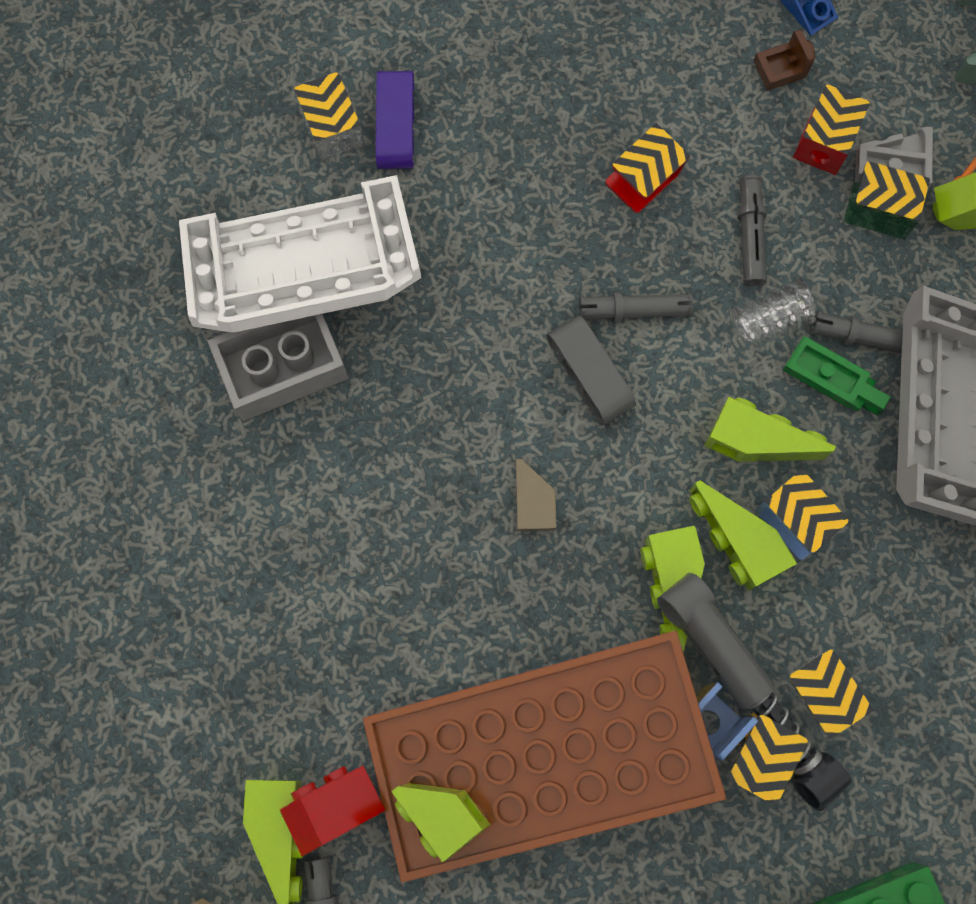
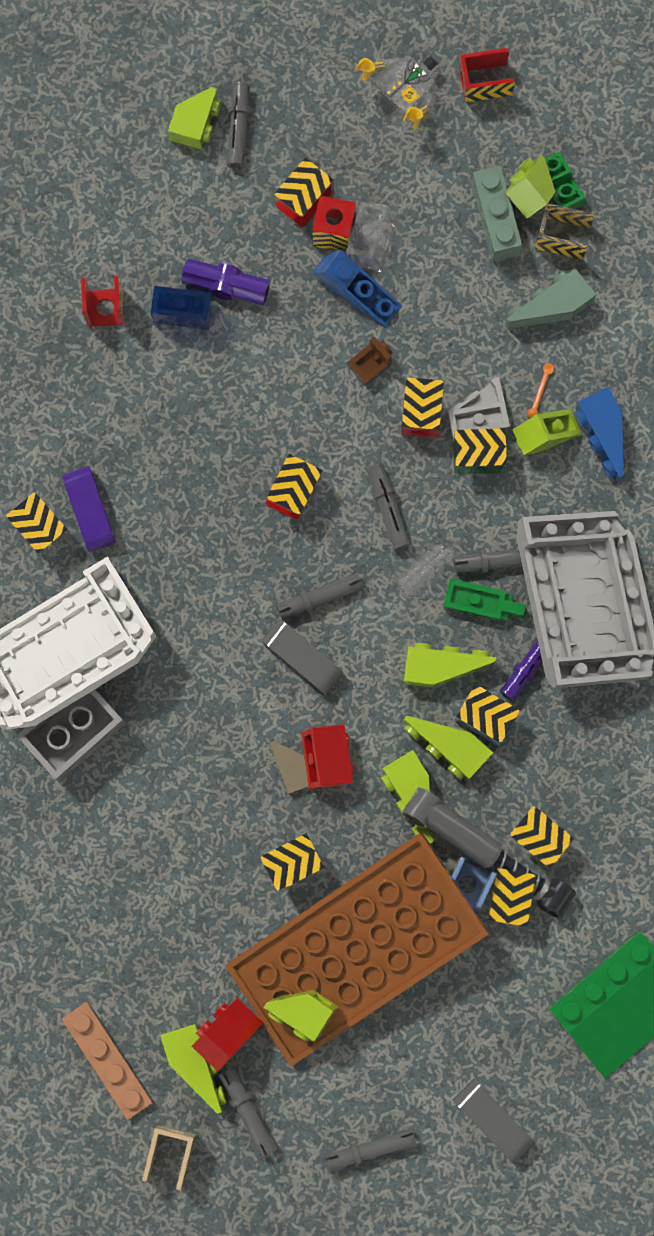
camera: 15 degrees left, 5 degrees up
(169, 789) = (107, 1060): none -> nougat plate
(494, 616) = (292, 863): none -> piece
(582, 499) = (327, 757): none -> red brick
(864, 478) = (522, 673): none -> dark purple pin

